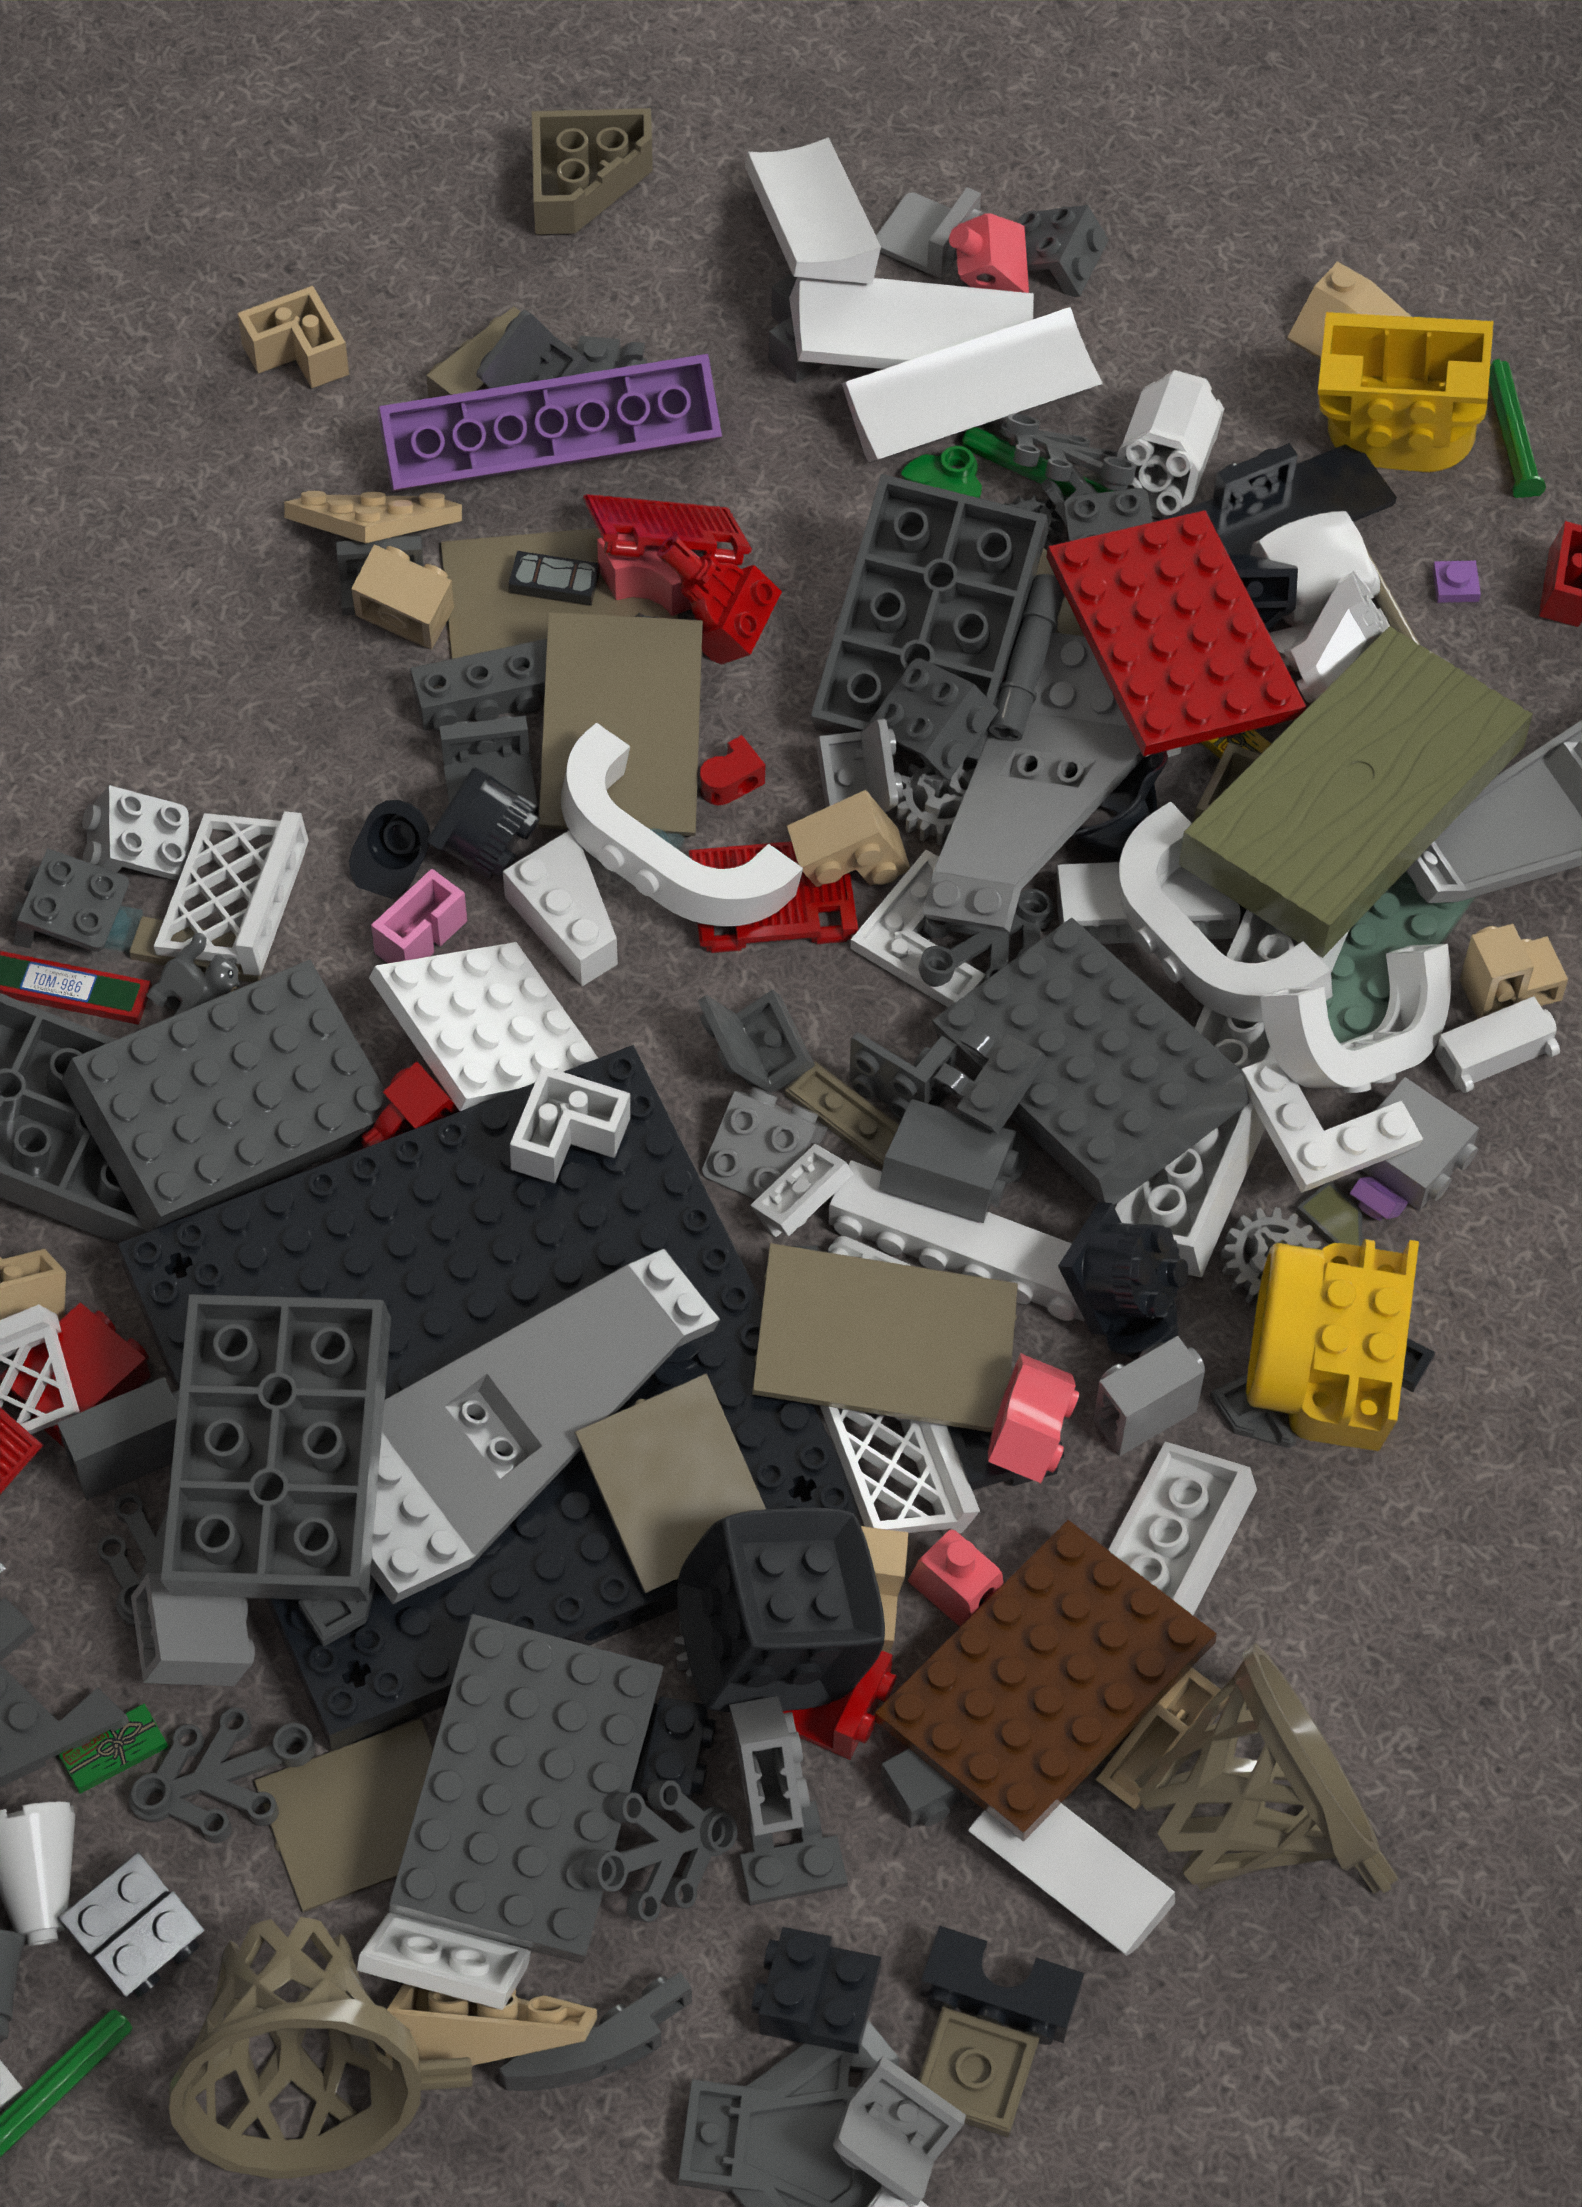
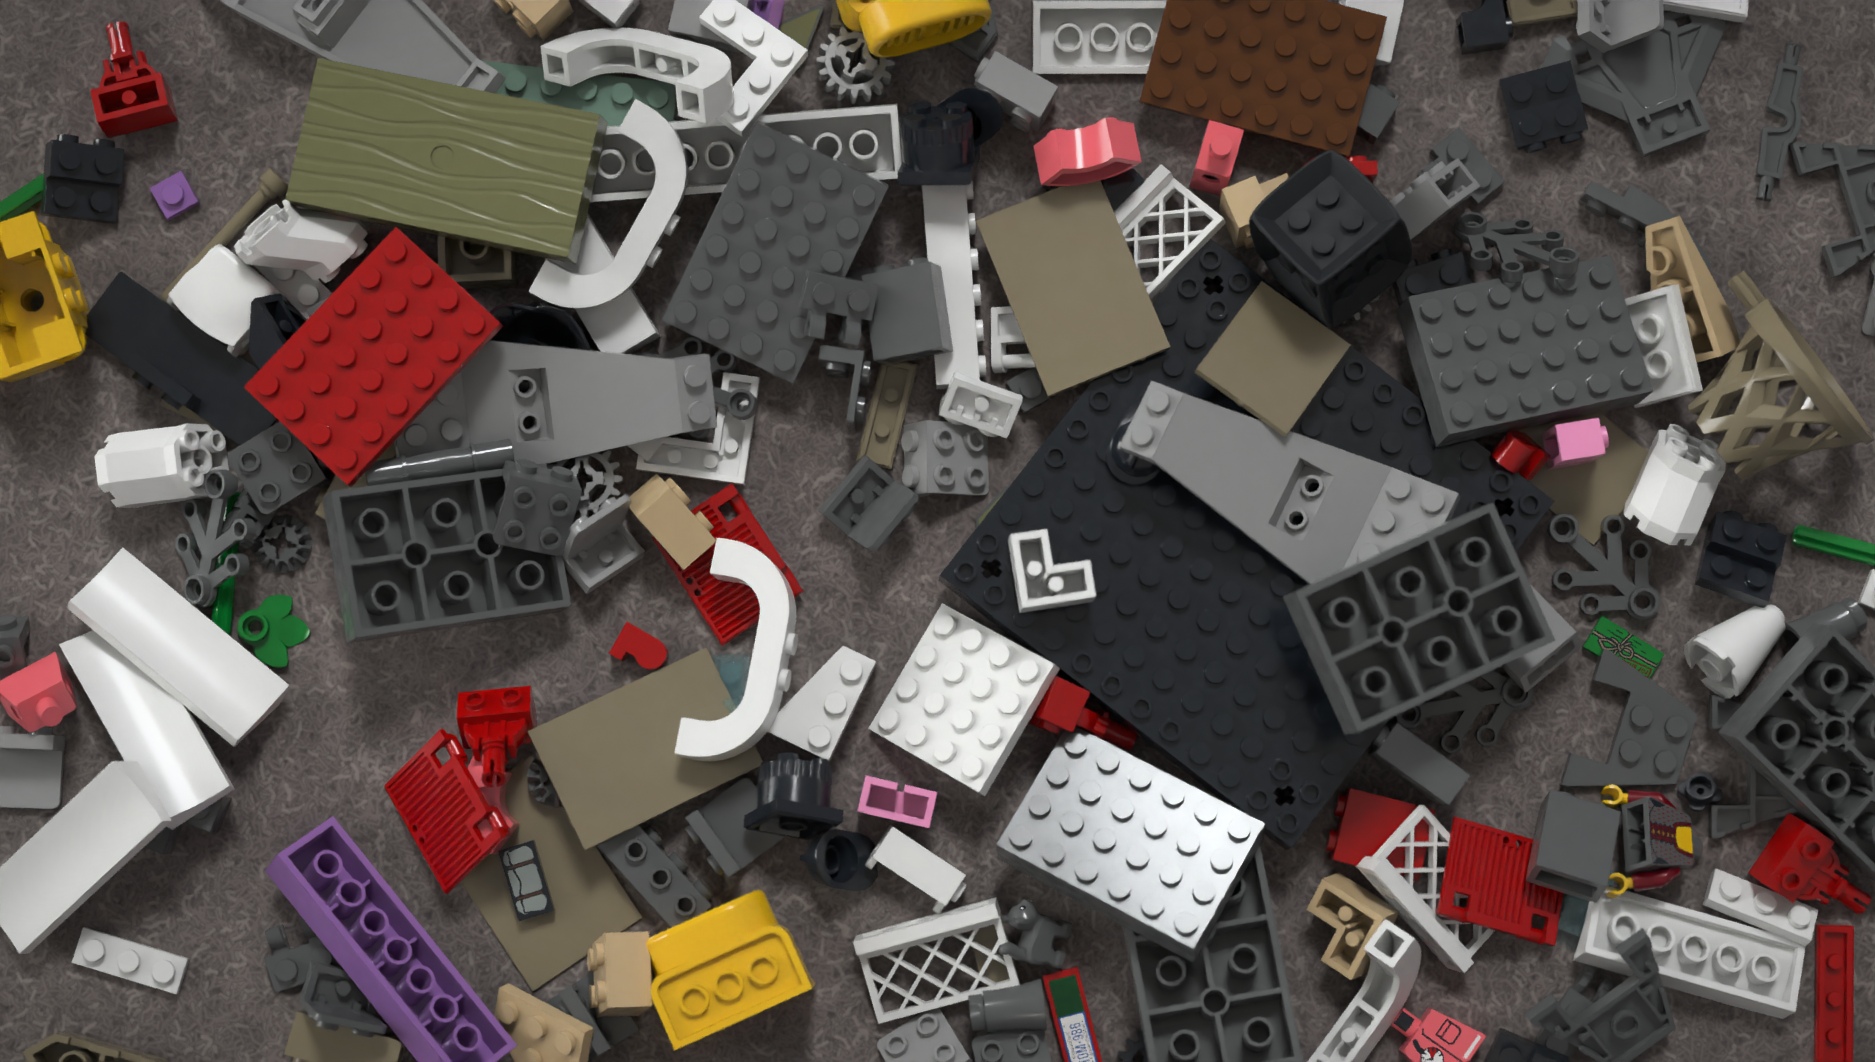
camera: 115 degrees left, 25 degrees up
(134, 924) = (1009, 1008): none -> dark grey plant
(255, 1874) = (1675, 486): none -> white brick
(337, 915) = (918, 867): none -> white brick
(346, 678) = (723, 968): none -> yellow brick
(383, 1792) = (1575, 443): none -> bright pink piece
(411, 1727) = (1520, 454): none -> red leg
(686, 242) = (130, 960): none -> white plate
(1513, 501) = (82, 179): none -> black plate

